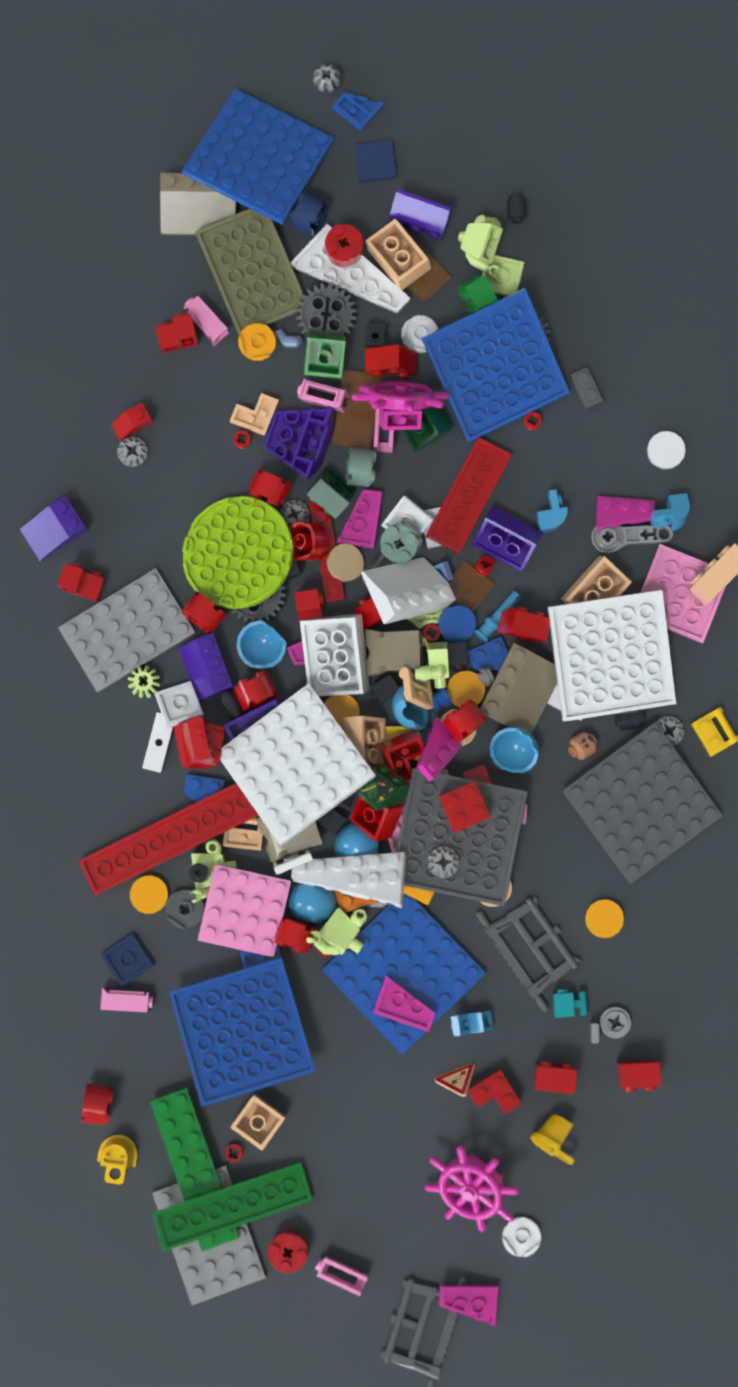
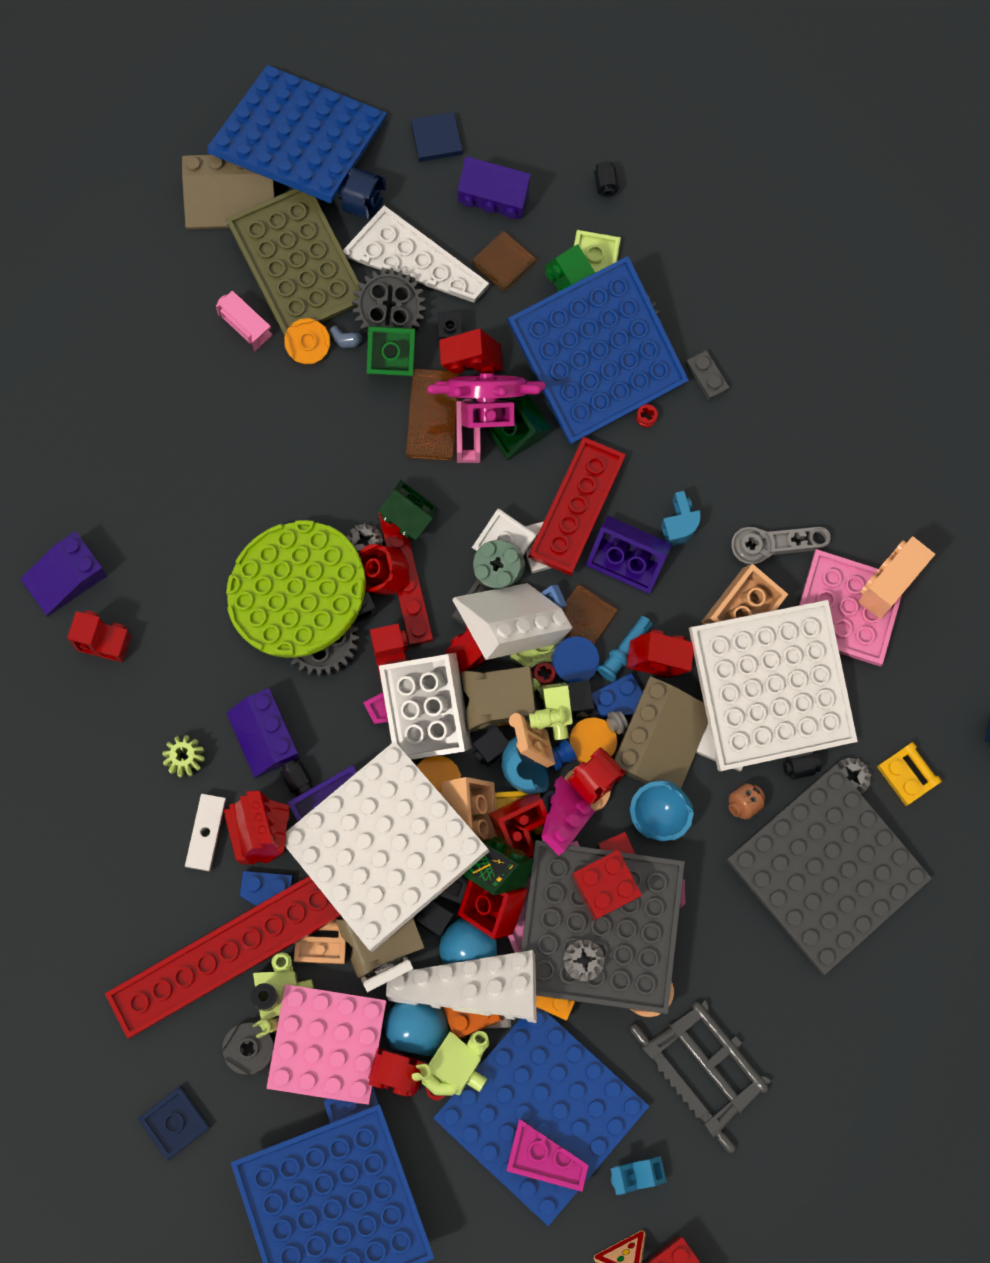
camera: 15 degrees left, 10 degrees down
(126, 630) = (159, 694): light grey plate -> none
(126, 1000) = (174, 1179): bright pink window -> none
(131, 421) = (157, 441): red slope -> none
(132, 460) = (159, 487): light grey gear -> none
(149, 894) = (199, 1032): light orange tile -> none
(178, 334) = (211, 337): red brick -> none
(178, 704) = (228, 780): white tile -> none
(203, 613) = (255, 664): red brick -> none
(236, 439) = (297, 449): red bush -> none
(255, 691) = (326, 758): red brick -> none
(258, 419) = (311, 431): light nougat plate -> none
(260, 645) = (330, 700): dark azure cylinder -> none
(269, 486) = (332, 508): red brick -> none
(301, 438) = (367, 449): dark purple wedge -> none
(303, 390) = (387, 405): bright pink window -> none
(326, 72) = (373, 48): light grey piece -> none
(339, 236) = (406, 225): red brick -> none
(345, 562) = (430, 593): tan tile -> none
(357, 109) = (411, 81): blue wing -> none
(359, 467) = (441, 478): sand green brick -> none
(363, 521) = (449, 545): dark pink wing -> none
(398, 254) = (471, 233): light nougat brick -> none
(414, 330) = (495, 323): white tile -> none
(481, 242) = (568, 216): yellowish green torso -> none
(487, 561) = (609, 586): red bush -> none
(554, 1078) = (754, 1243): red brick -> none
(564, 1003) = (757, 1141): teal brick -> none
(594, 1033) = (799, 1176): light grey tile -> none
(604, 918) = (795, 1022): light orange tile -> none
(618, 510) = (762, 513): dark pink wing -> none
(618, 1031) = (835, 1155): light grey gear -> none
(638, 1074) = (865, 1229): red brick -> none
(666, 450) = (810, 440): white tile -> none
(674, 514) = (829, 512): dark azure brick -> none

